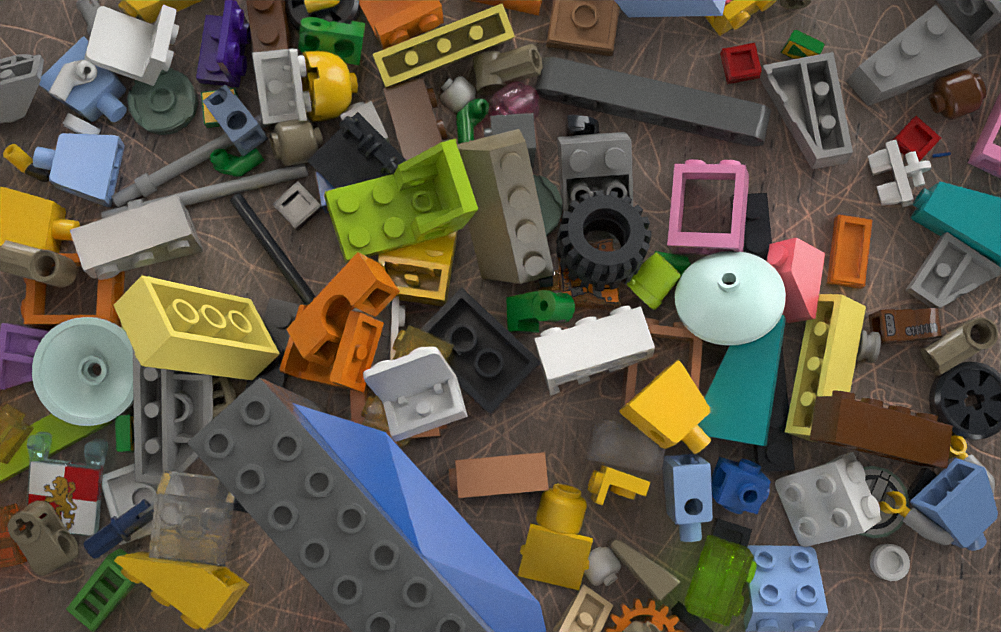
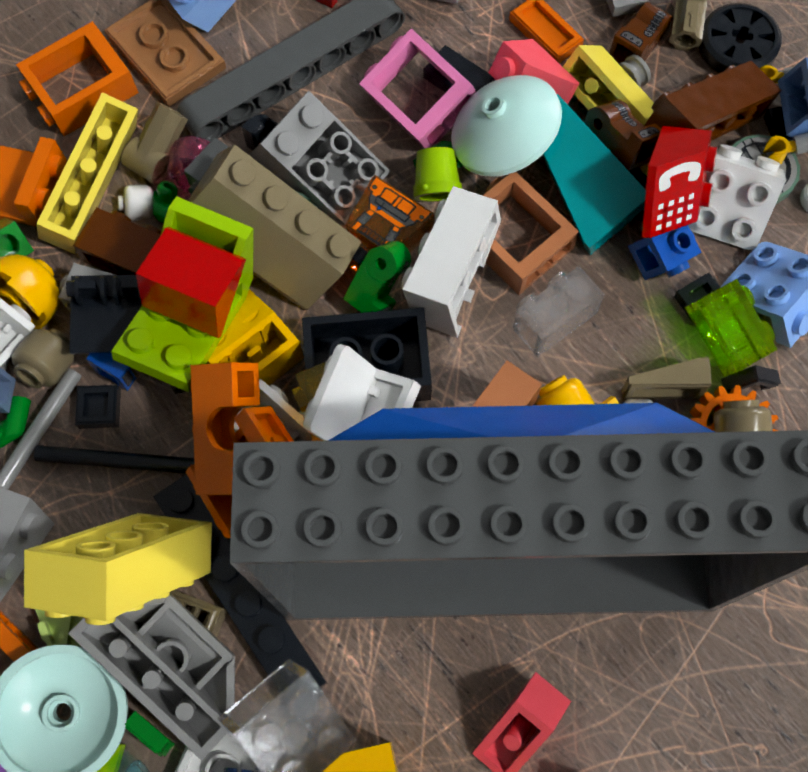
camera: 45 degrees left, 10 degrees down
(411, 200) = (190, 281): none -> red slope
(609, 215) = (367, 152): black tyre -> none
(621, 484) = (580, 336): yellow bracket -> none
(670, 410) = (558, 238): yellow torso -> none
(685, 479) = (639, 291): light blue torso -> none
(787, 457) = (677, 179): none -> red slope
(796, 385) = (623, 133): none -> reddish brown leg

